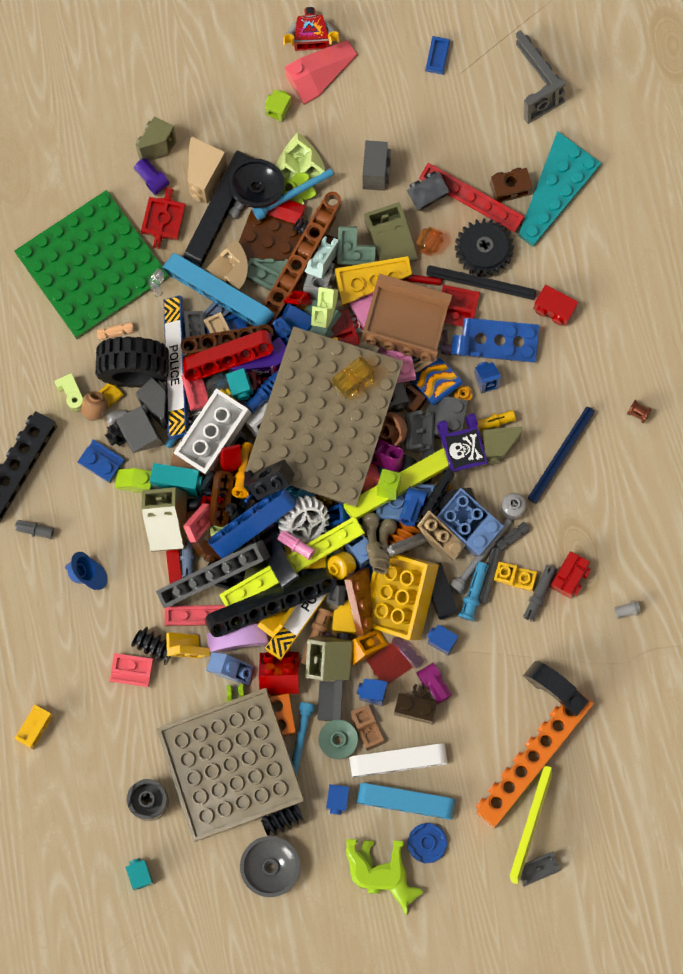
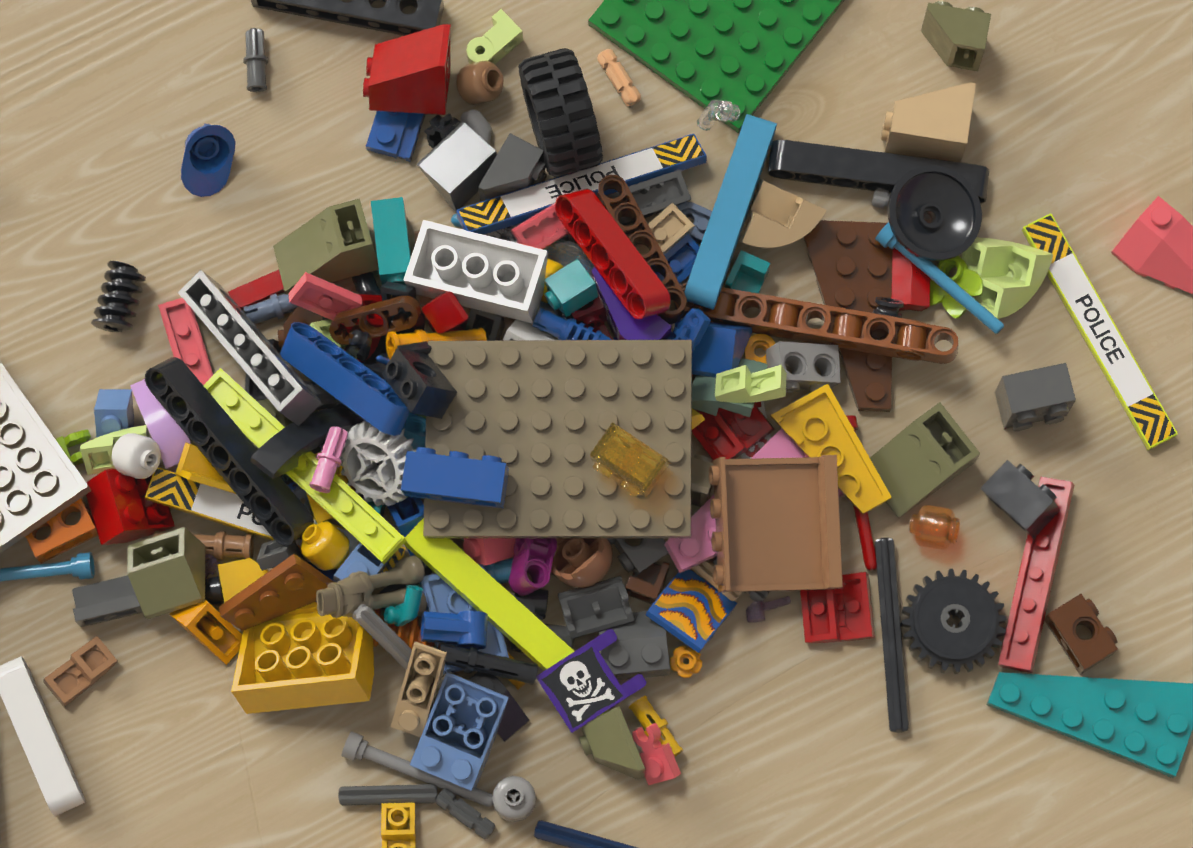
camera: 70 degrees right, 0 degrees up
(76, 440) = (411, 73): none -> red slope
(111, 393) = (510, 104): yellow tile -> none
(131, 670) = (71, 277): coral plate -> none
(133, 480) = (376, 181): lime slope -> none
(153, 179) = (894, 55): dark purple piece -> none
(163, 218) = (832, 90): red plate -> none
(185, 646) = (128, 343): yellow panel -> none
(246, 674) = (98, 452): none -> yellowish green slope
(254, 291) = (748, 273): none -> teal panel
(256, 655) = (136, 455): none -> white head
(264, 271) = (794, 275): sand green wing -> none
(278, 104) = (1092, 209): lime brick -> none
(298, 298) = (756, 340): red slope -> none
(322, 258) = (839, 359): light aqua hinge -> none
(332, 475) = (455, 478): none -> blue brick
(340, 729) = (34, 618): sand green dish -> none
(348, 123) = (1101, 334): none -> tile
(348, 249) = (868, 400): sand green plate -> none
(372, 691) = (136, 661): blue slope -> none
(389, 484) = (476, 578): lime brick -> none
(389, 663) = (195, 675): clear red piece -> none
(394, 530) = (407, 610): none -> teal arm
(407, 651) = (219, 702): axle -> none
(415, 707) = (131, 737): dark brown brick -> none
(432, 679) = (186, 750): magenta piece -> none
(442, 596) = (333, 725): black beam -> none
(442, 639) = (256, 747): blue brick -> none
(467, 346) = (770, 646): blue hinge -> none
(472, 600) = (336, 777): dark azure pin -> none
(487, 376) = (725, 690): blue slope -> none
(513, 420) = (657, 758): none -> coral plate
(555, 305) = (889, 769): red brick -> none

